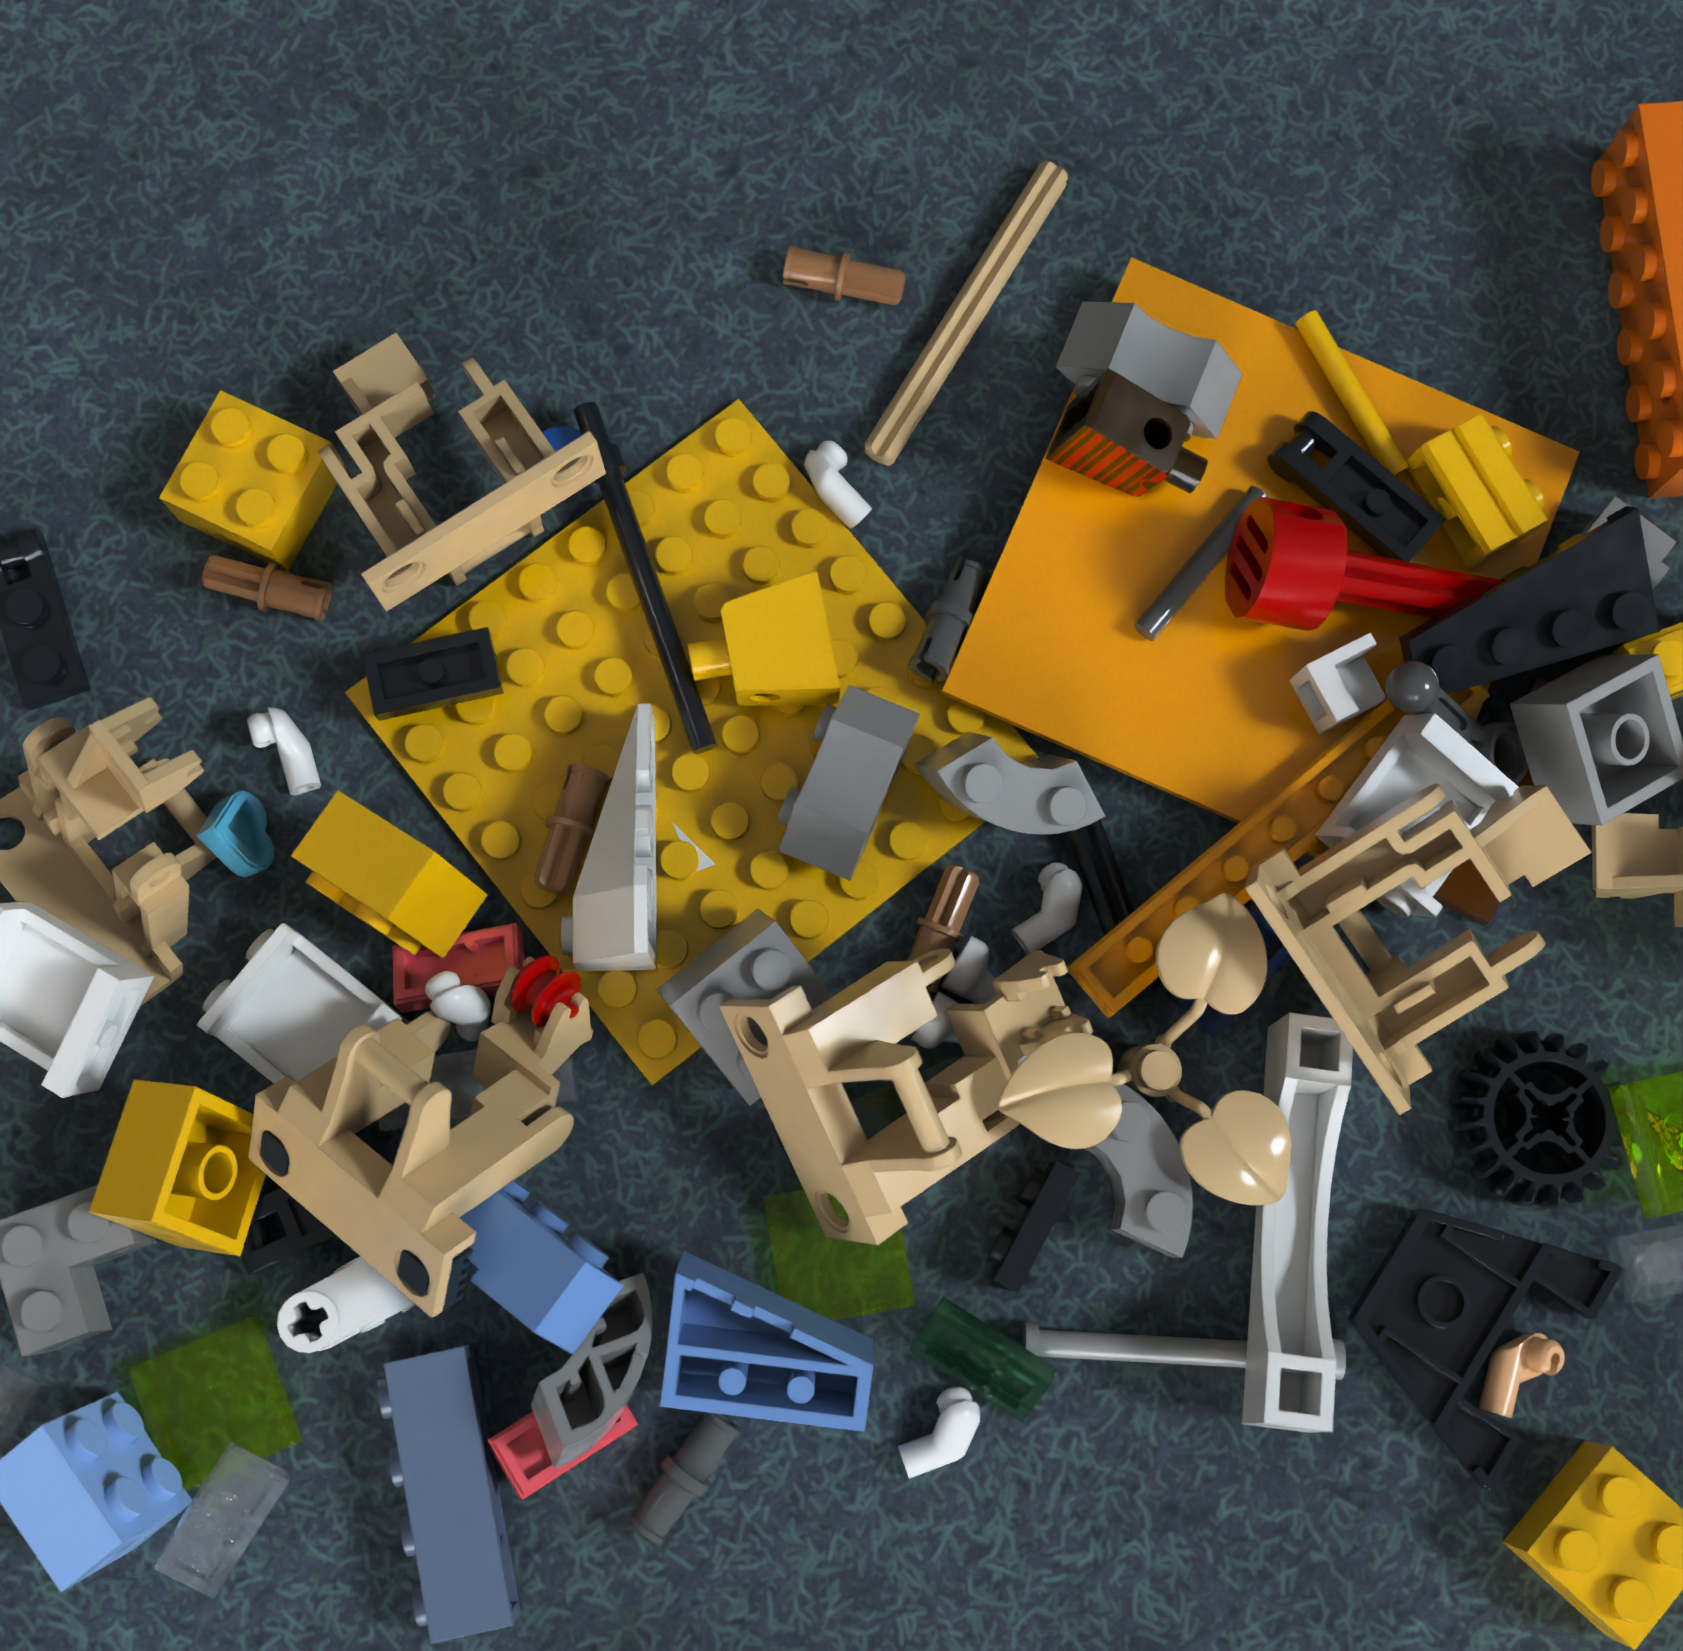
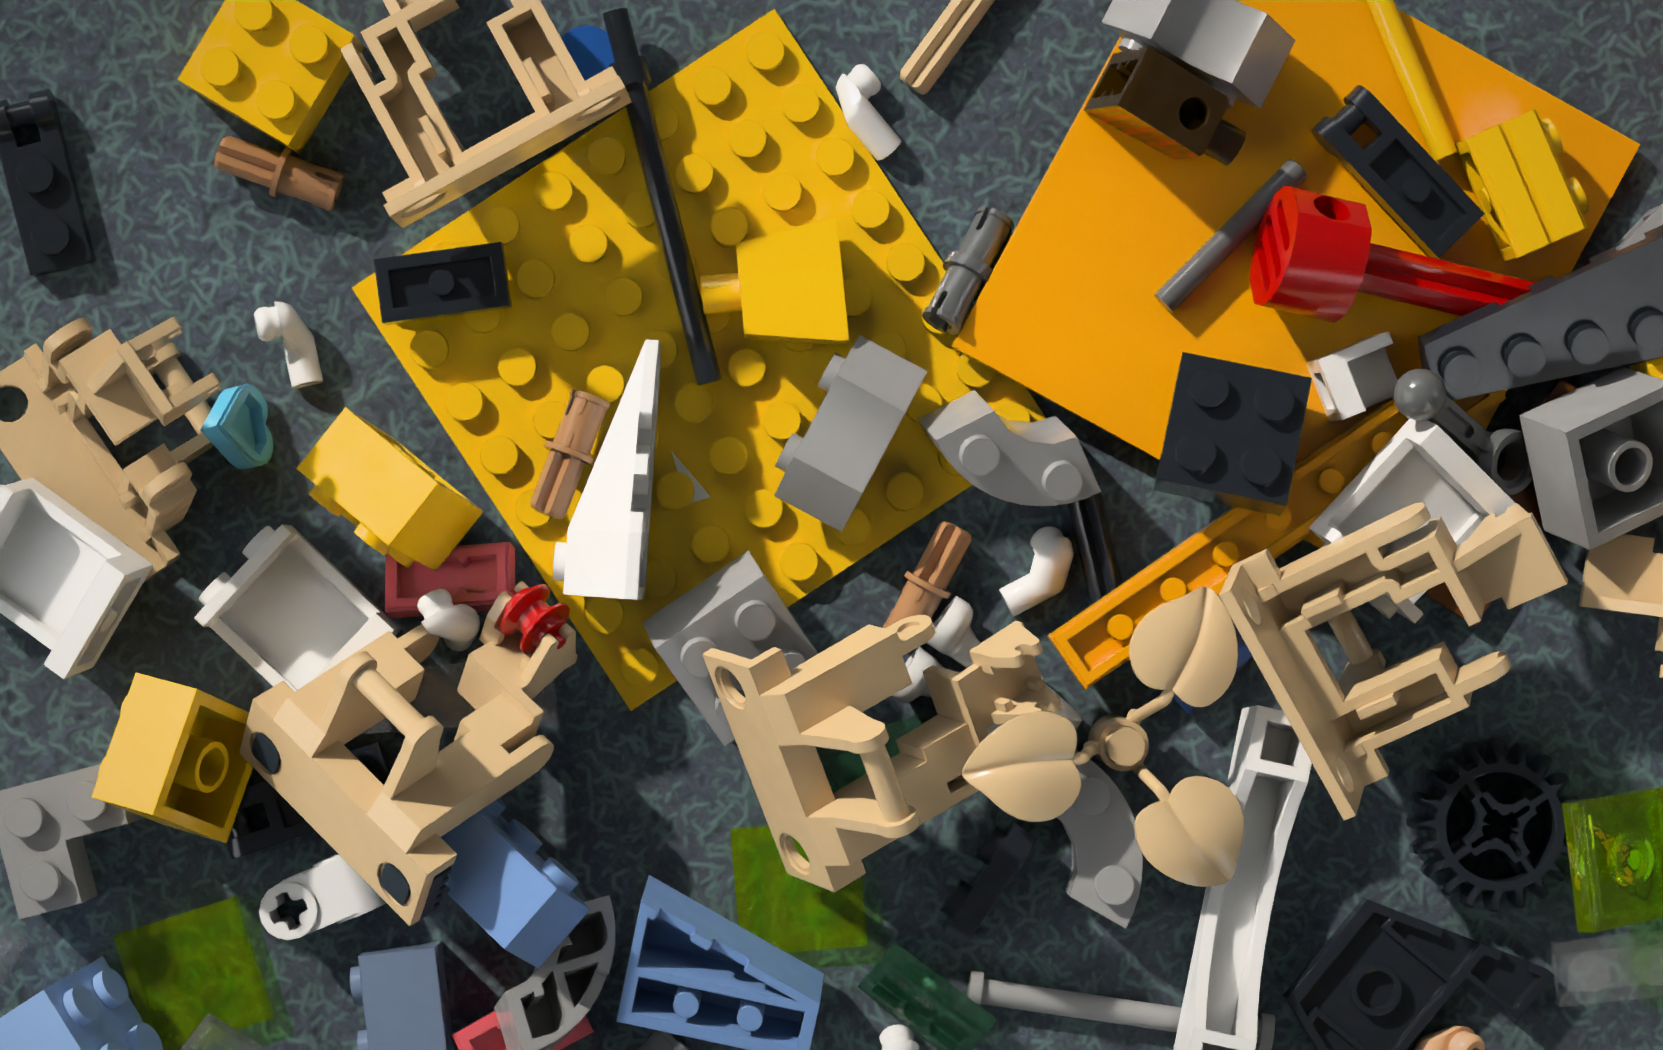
camera: 10 degrees right, 10 degrees up
(1231, 745) = (1232, 434): none -> black brick

